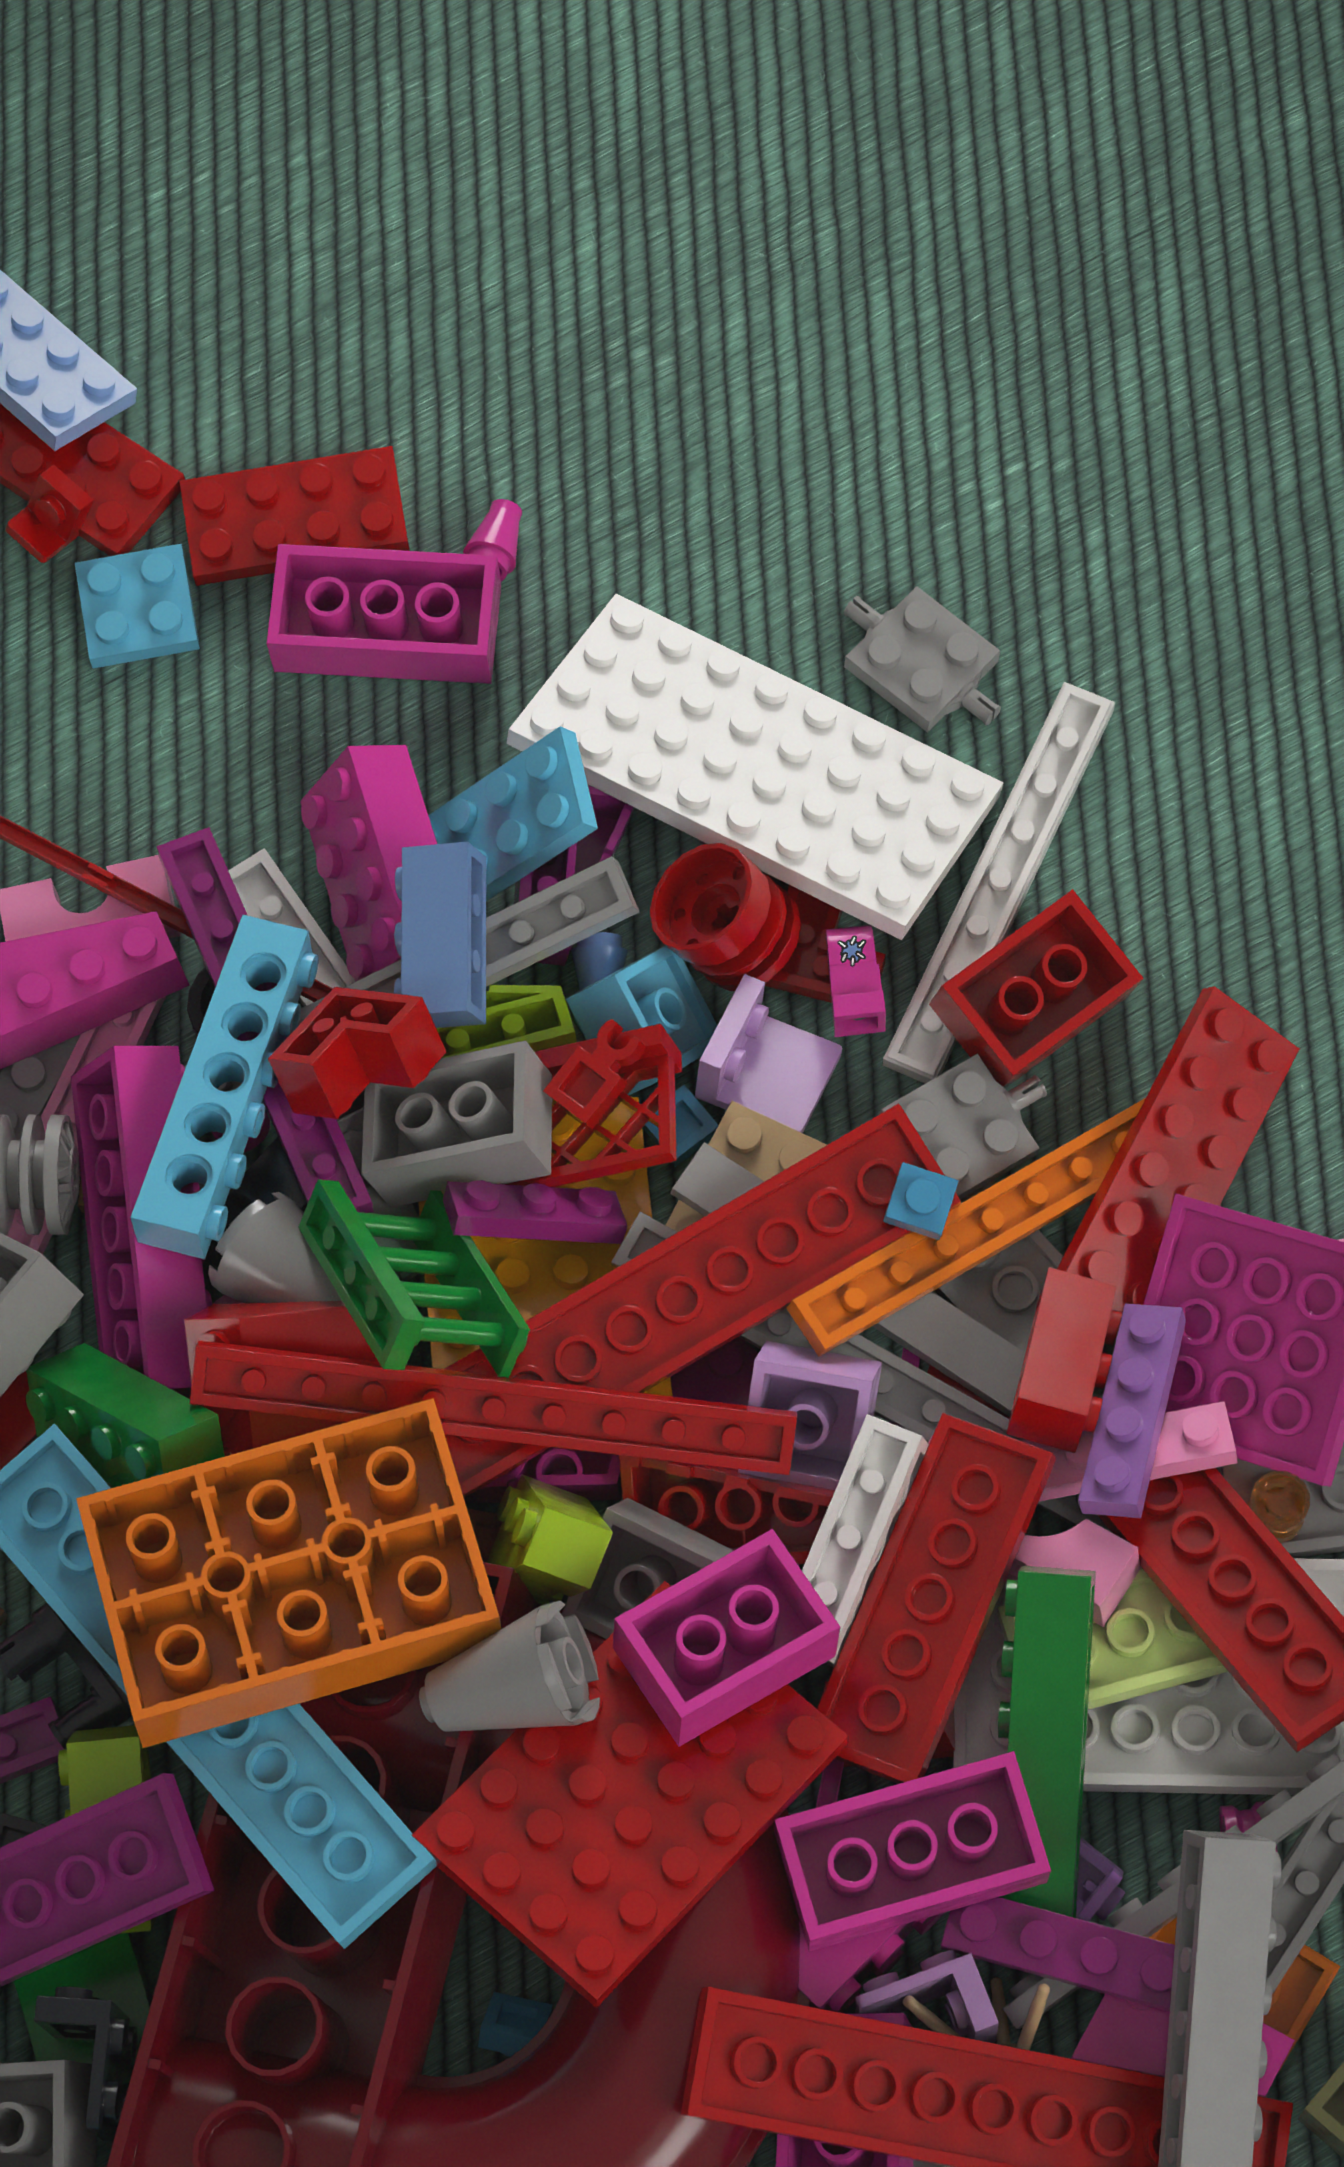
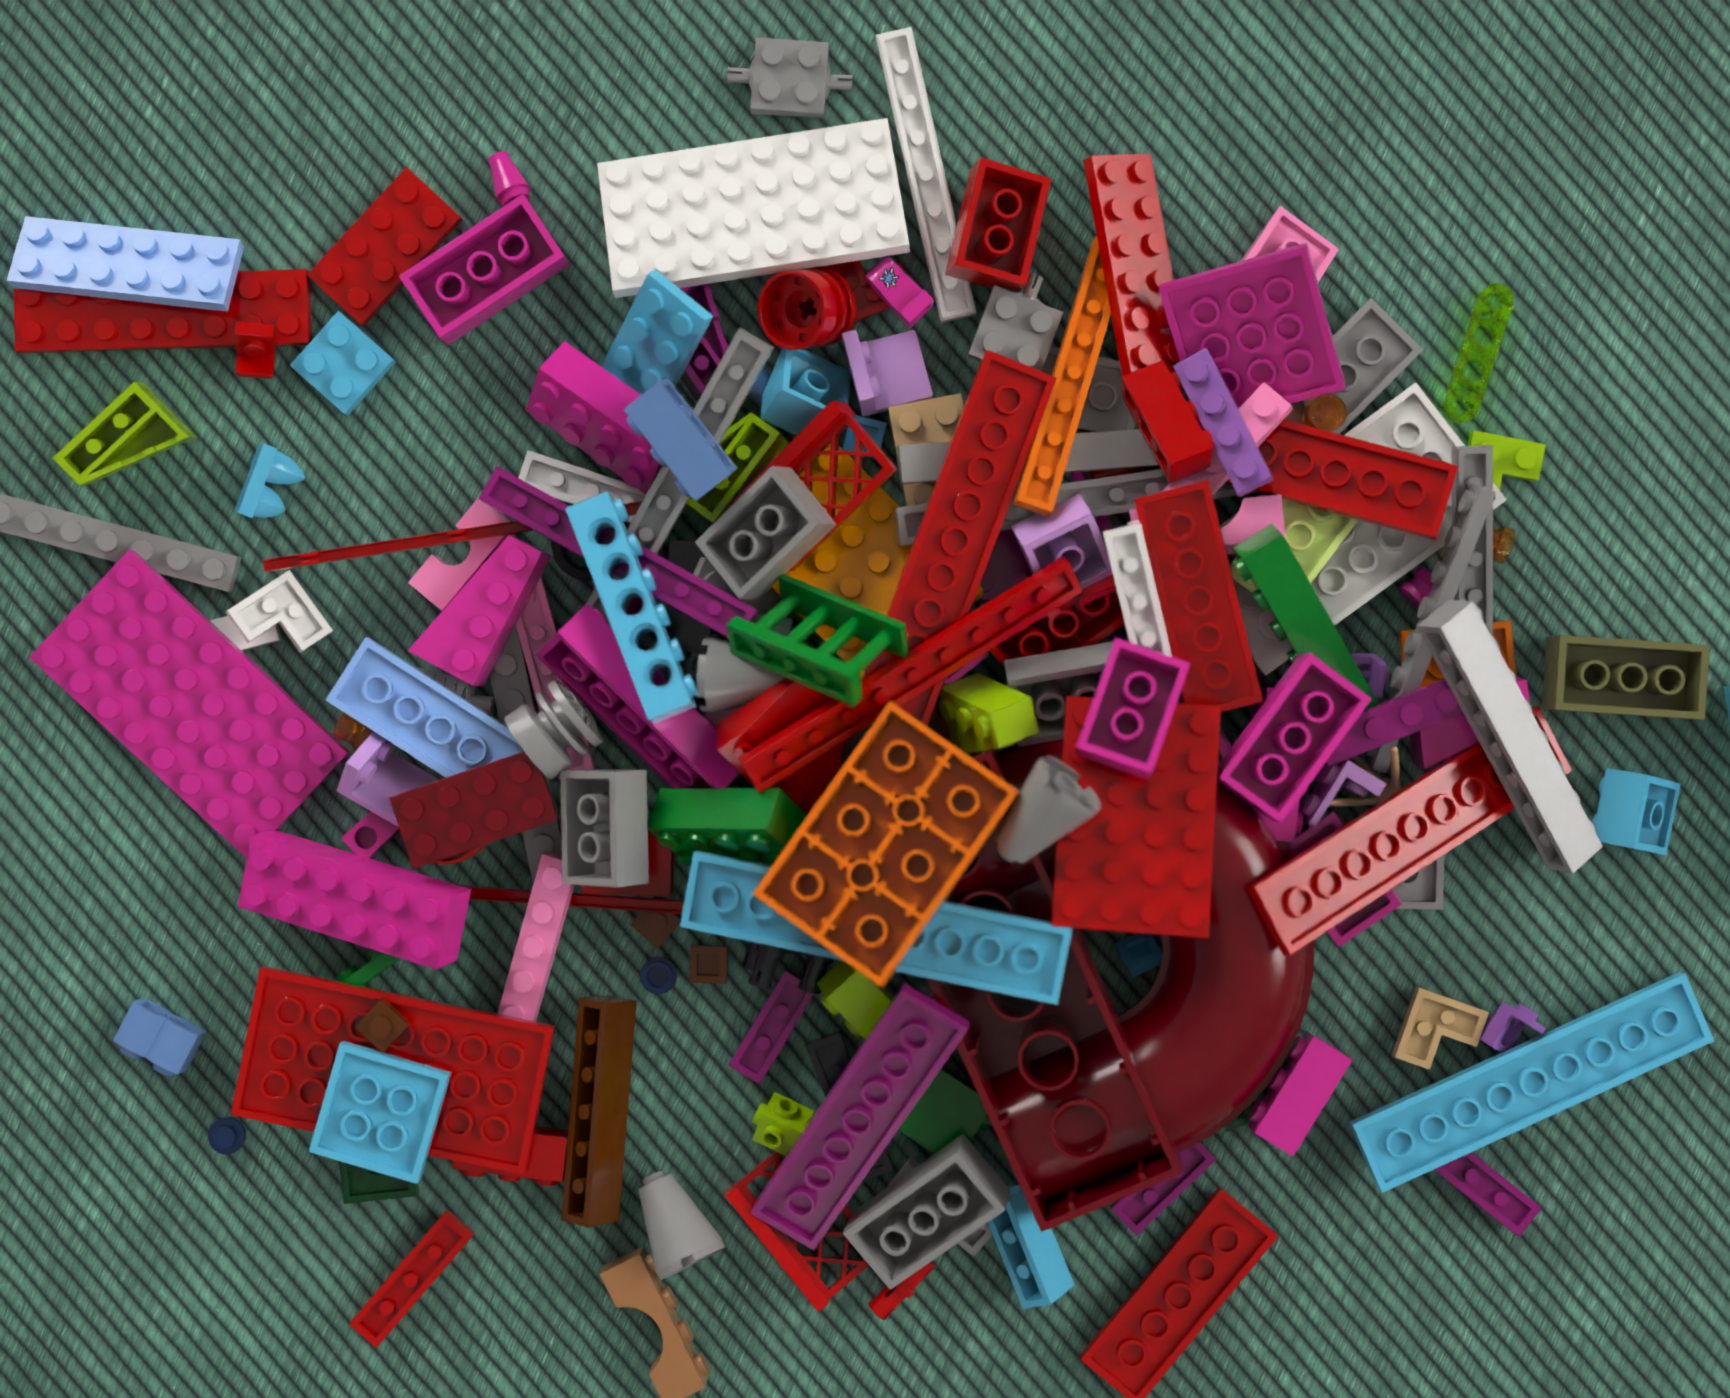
camera: 40 degrees left, 20 degrees up
(83, 2017) = (945, 1119): black bracket -> none
(353, 1042) = (681, 533): red brick -> none
(534, 1212) = (841, 549): magenta plate -> none
(590, 1082) = (819, 460): red plate -> none
(920, 1201) = (1038, 394): dark azure plate -> none

